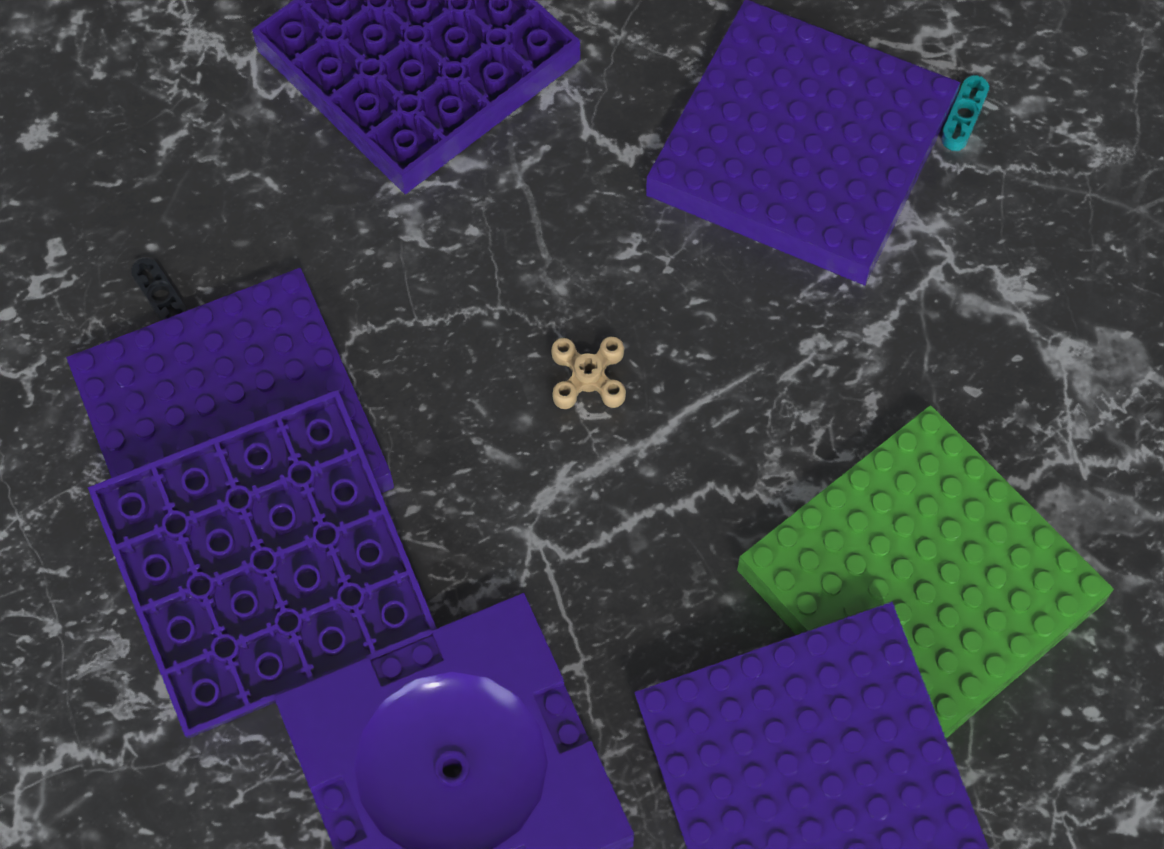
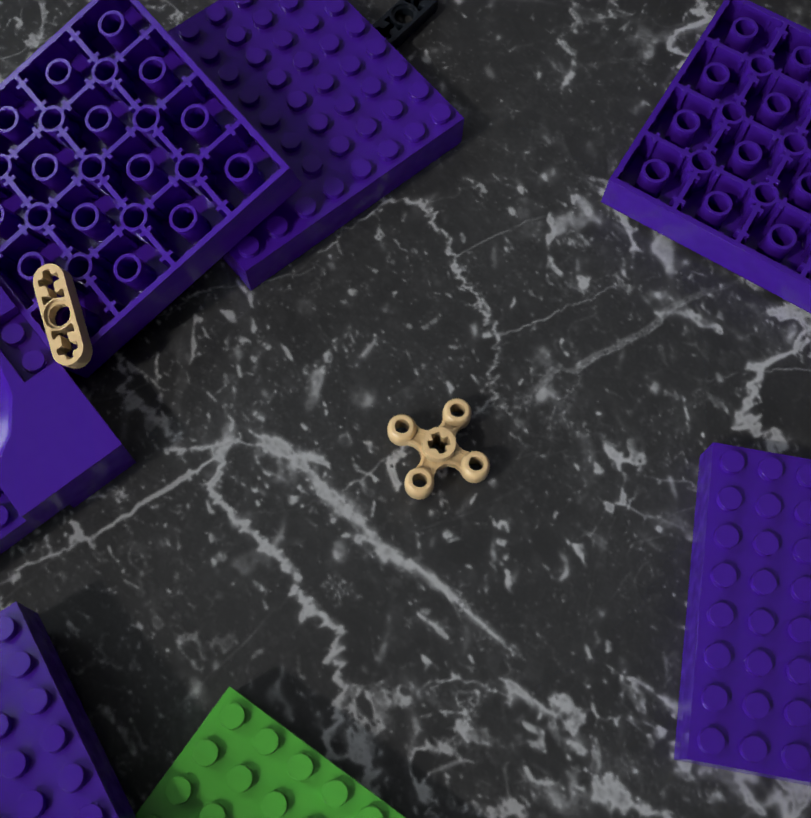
camera: 70 degrees right, 5 degrees up
(385, 628) = (74, 327): none -> tan beam

